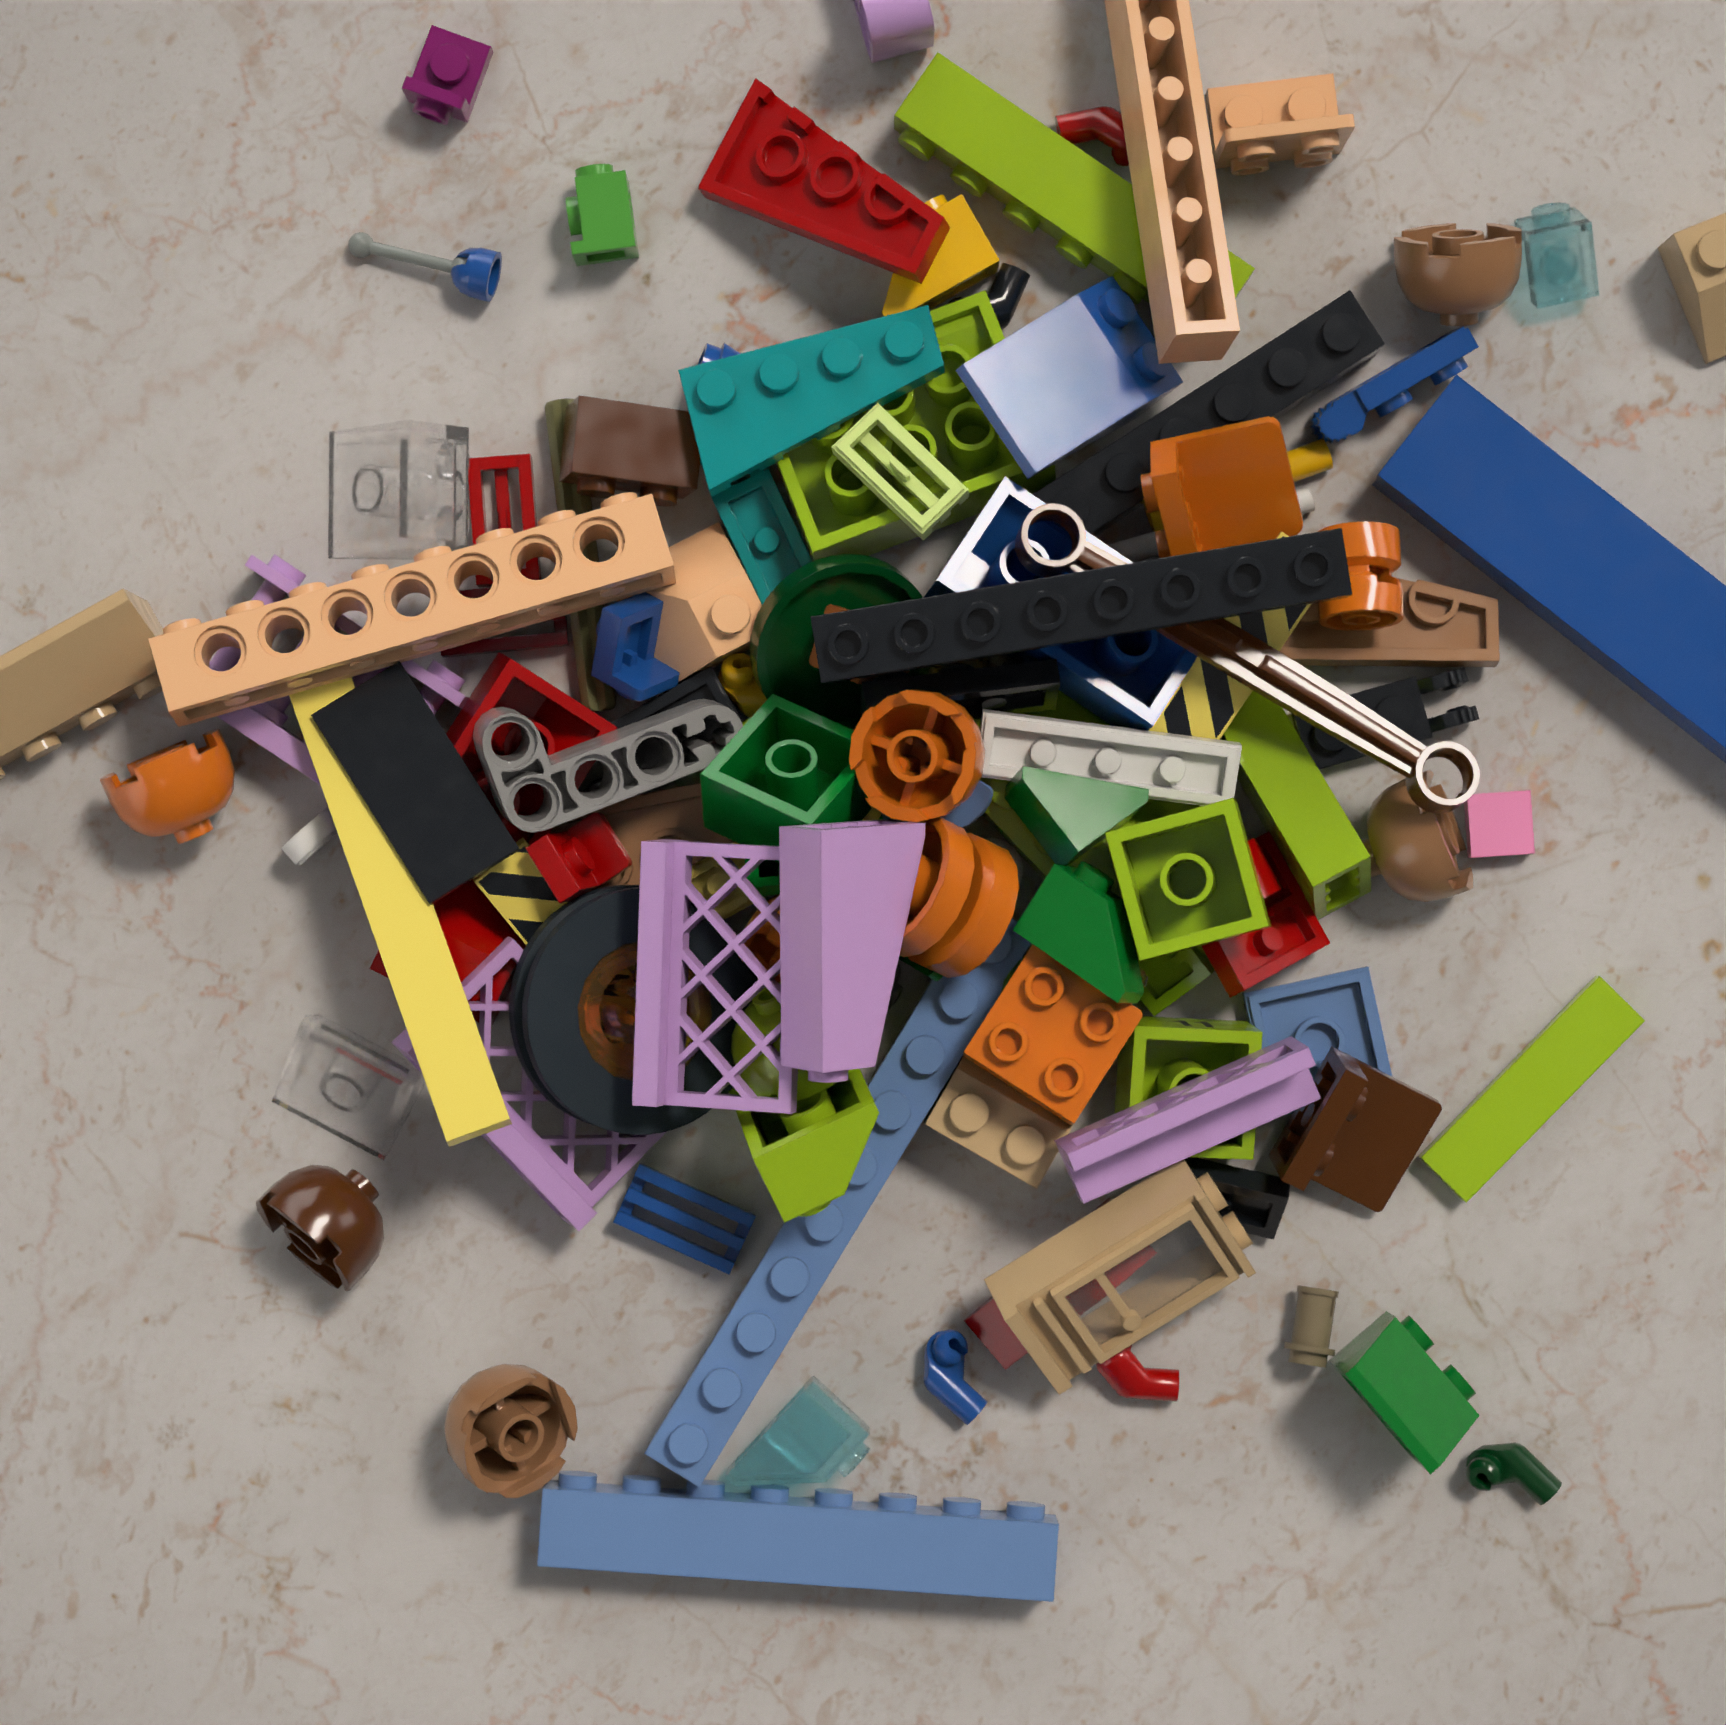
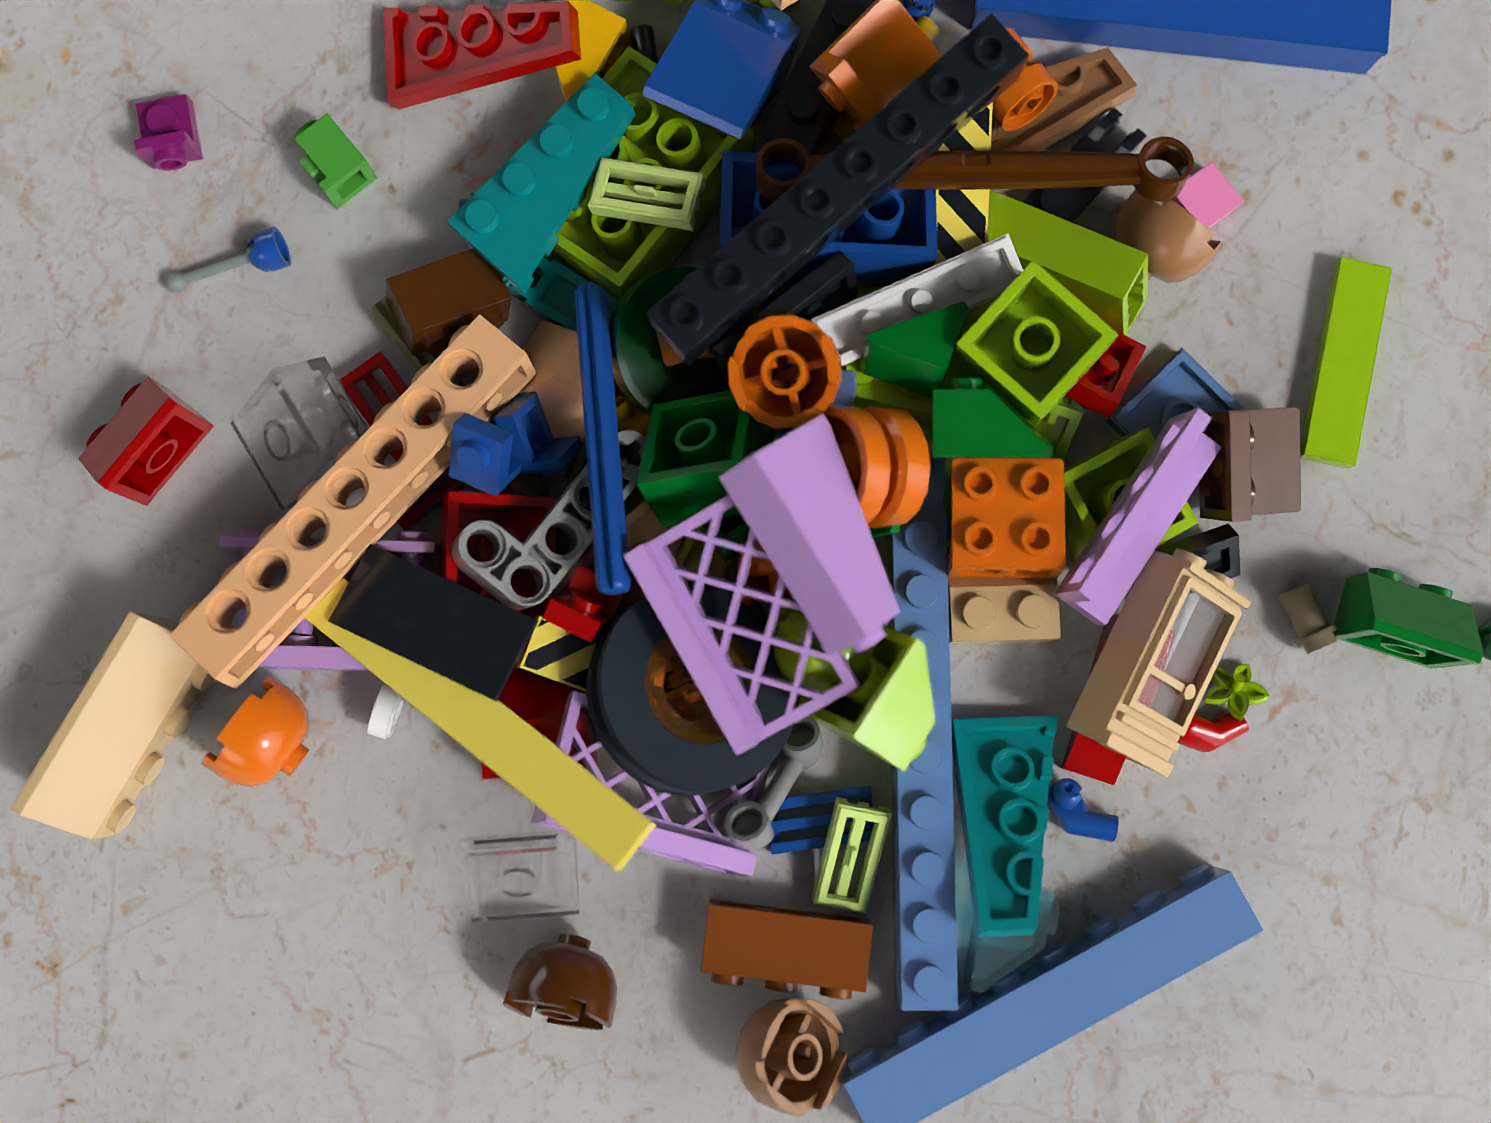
camera: 35 degrees left, 5 degrees down
(230, 402) = (144, 442): none -> red slope
(566, 643) = (482, 455): none -> blue bracket
(569, 1323) = (786, 948): none -> dark orange brick
(609, 1178) = (750, 822): none -> light grey bar
(696, 701) = (601, 440): none -> blue axle
(726, 1238) = (860, 813): none -> yellowish green tile
(876, 1316) = (1003, 799): none -> teal wing
(1190, 1351) = (1236, 690): none -> lime plant

